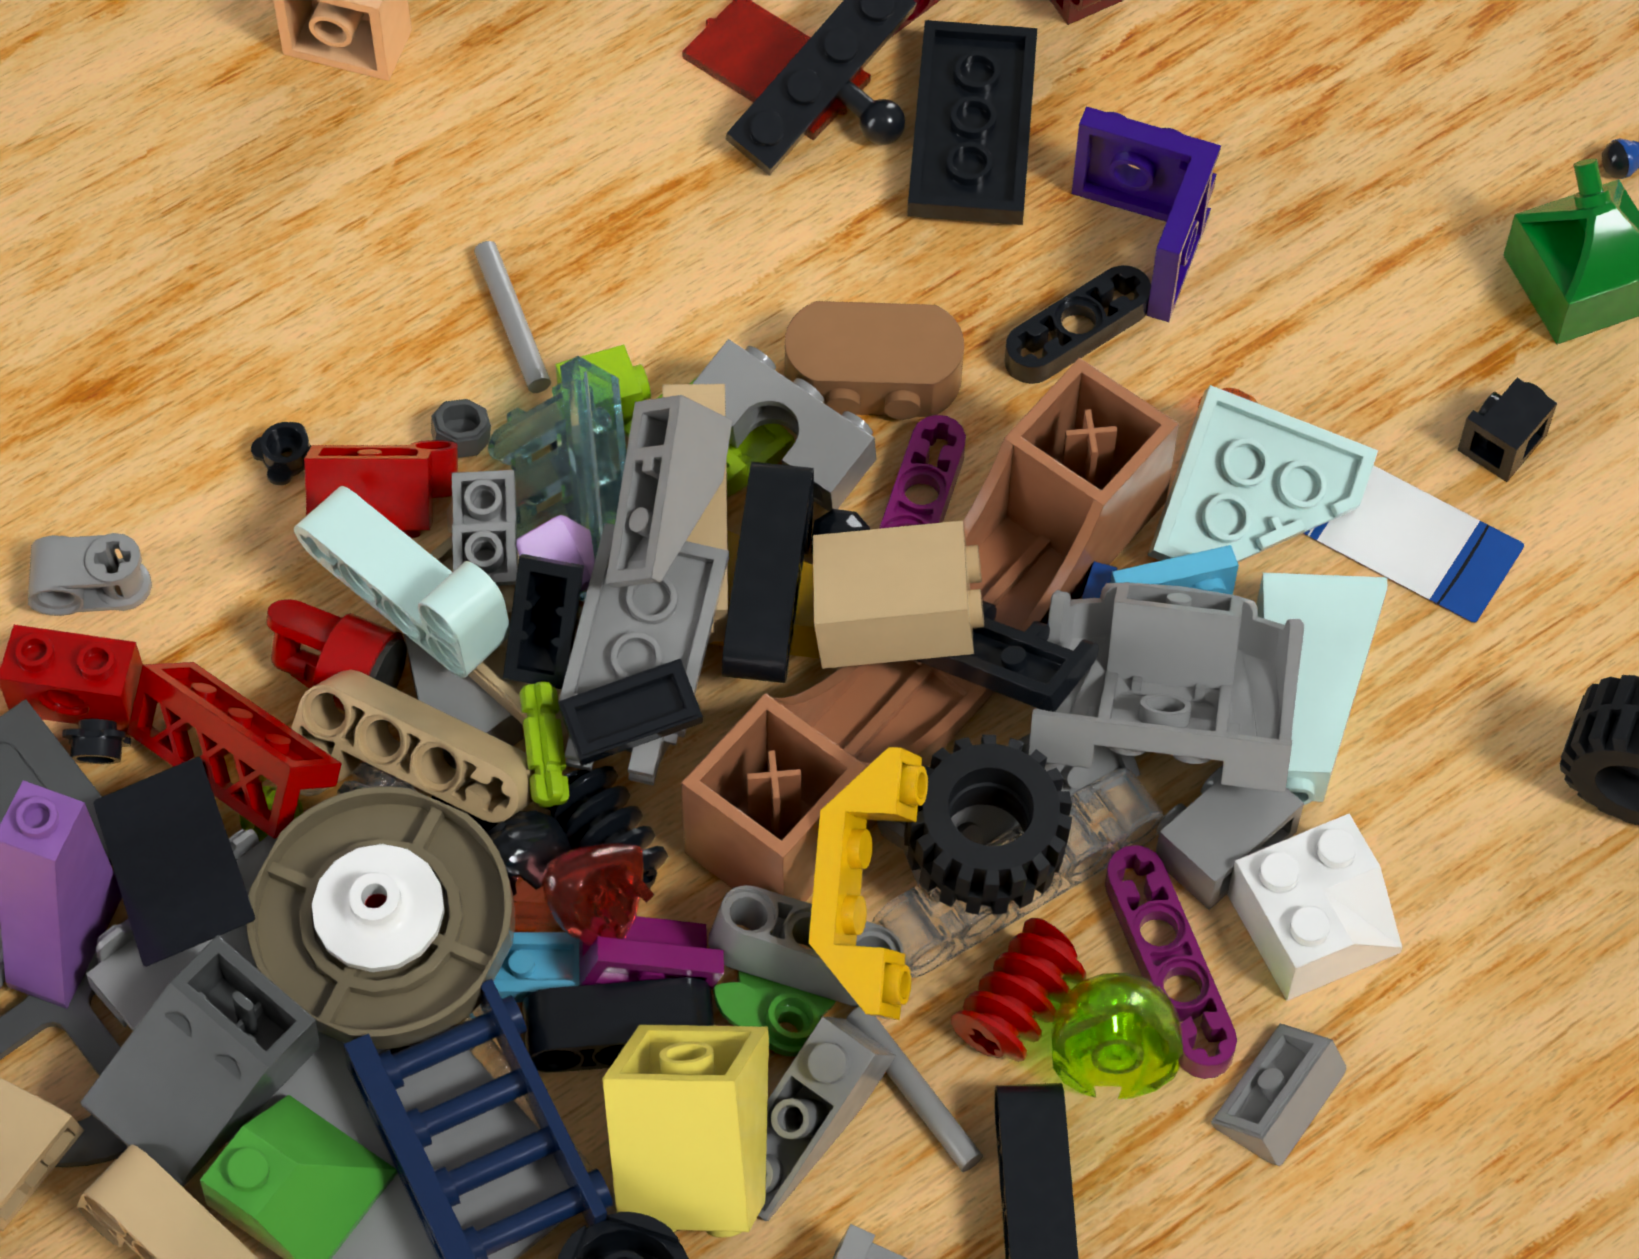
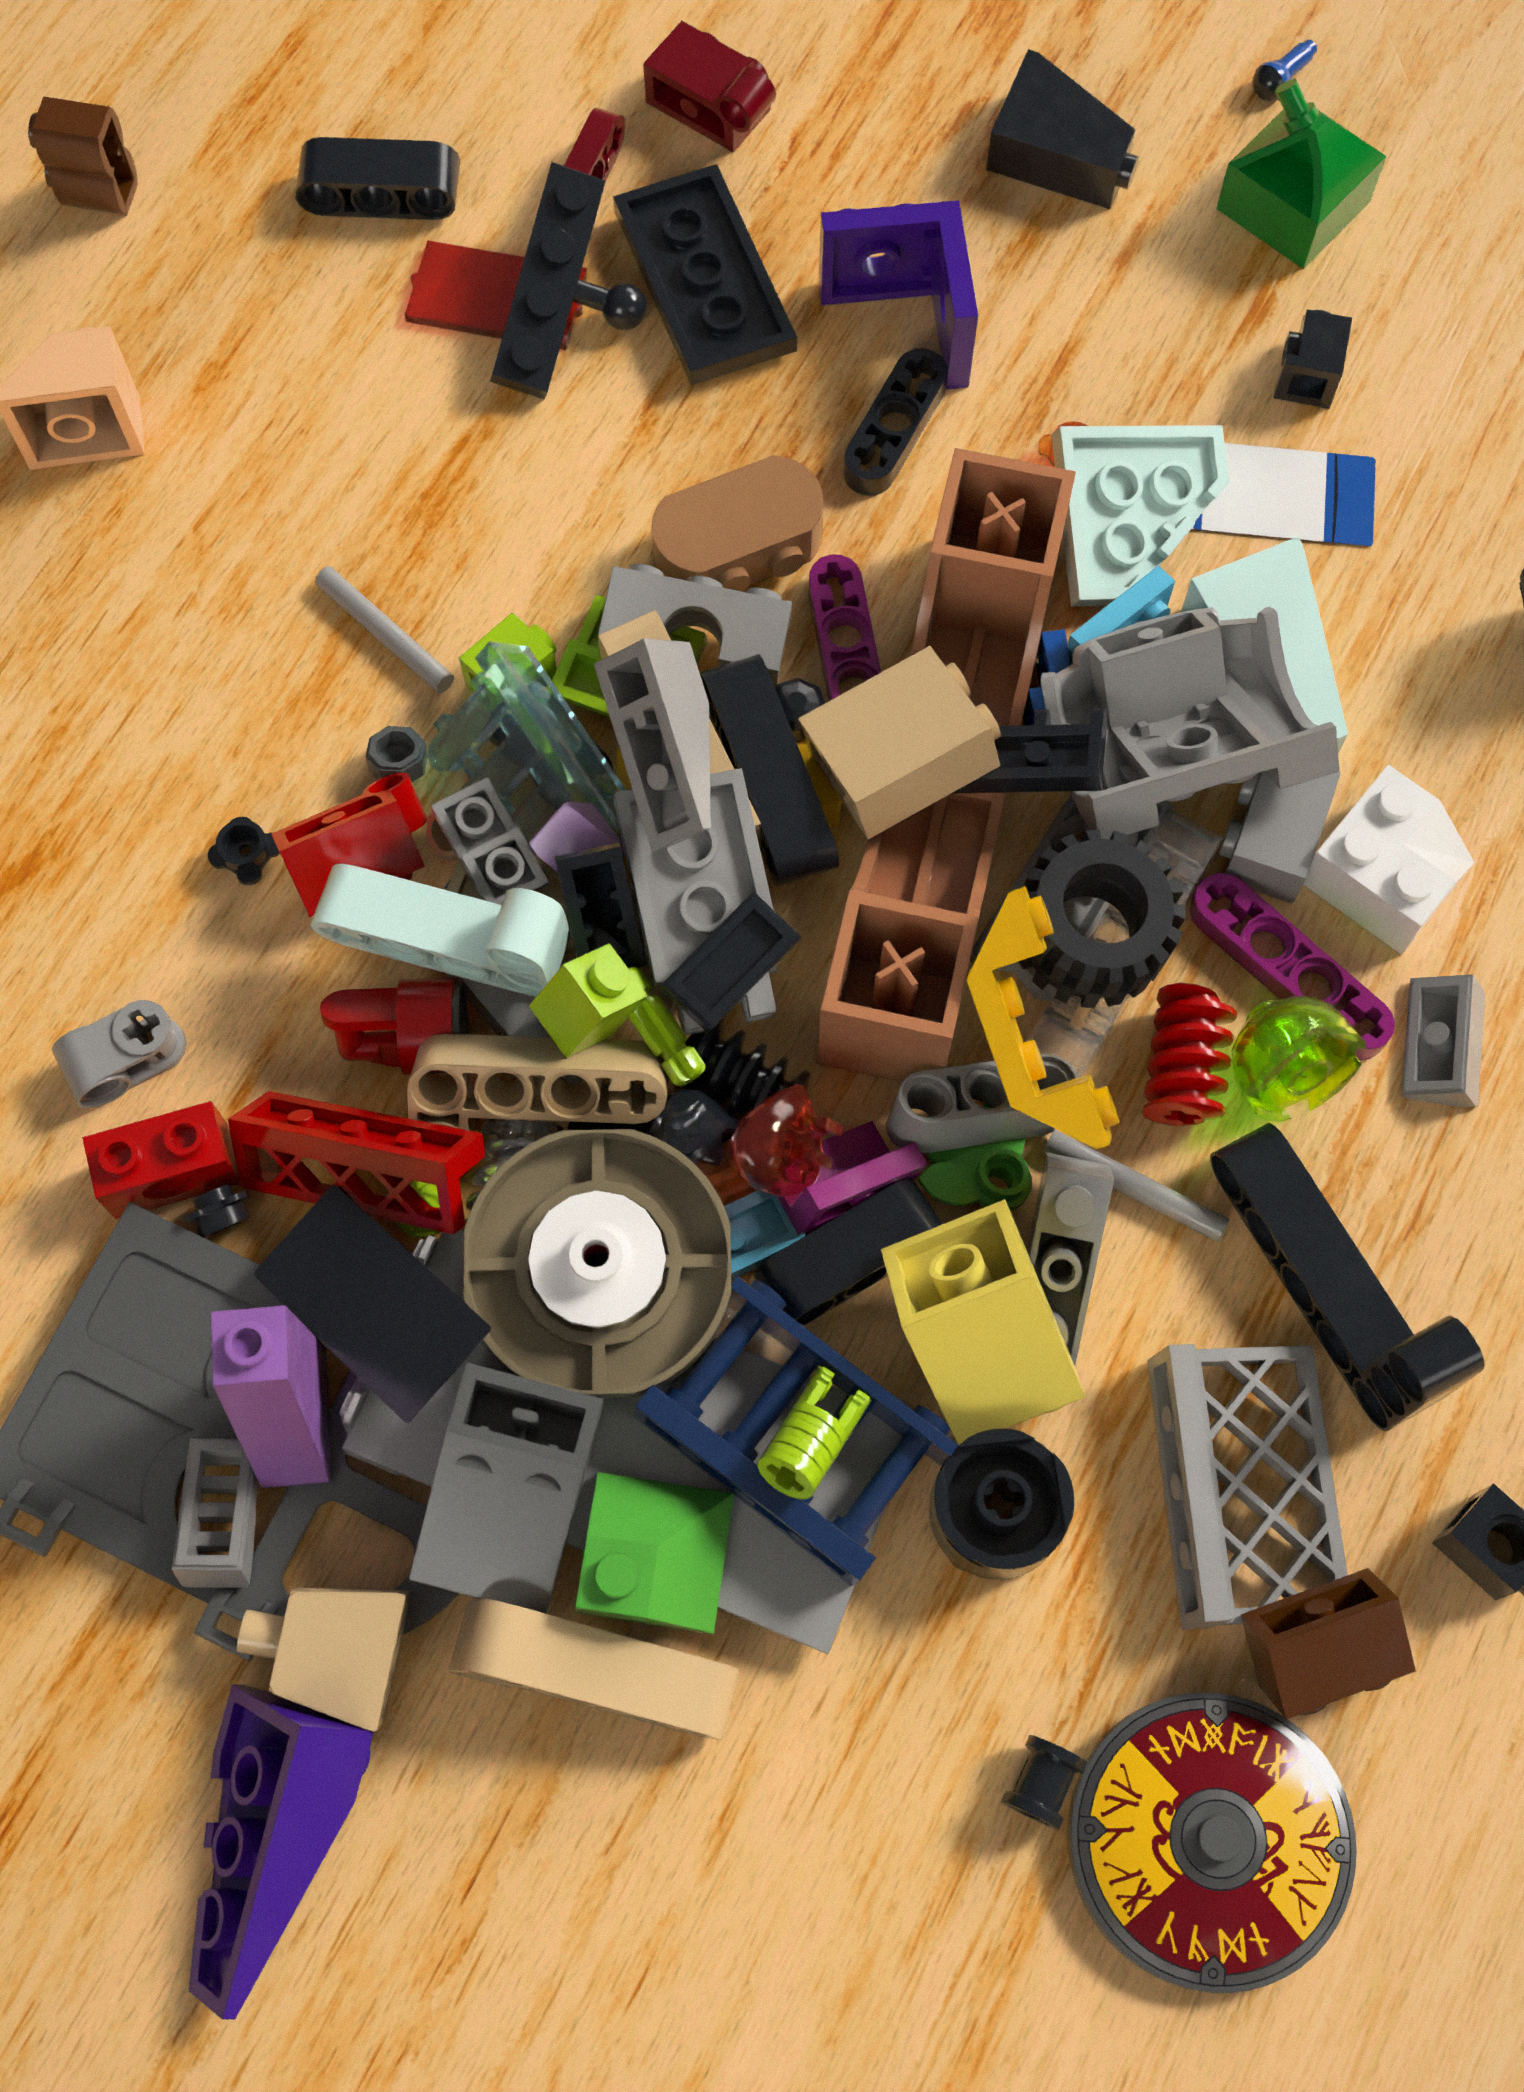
camera: 25 degrees left, 10 degrees up
(478, 1139) = (809, 1439): none -> lime hinge
(491, 691) = (587, 1000): none -> lime brick
(1377, 129) = (1061, 136): none -> black slope

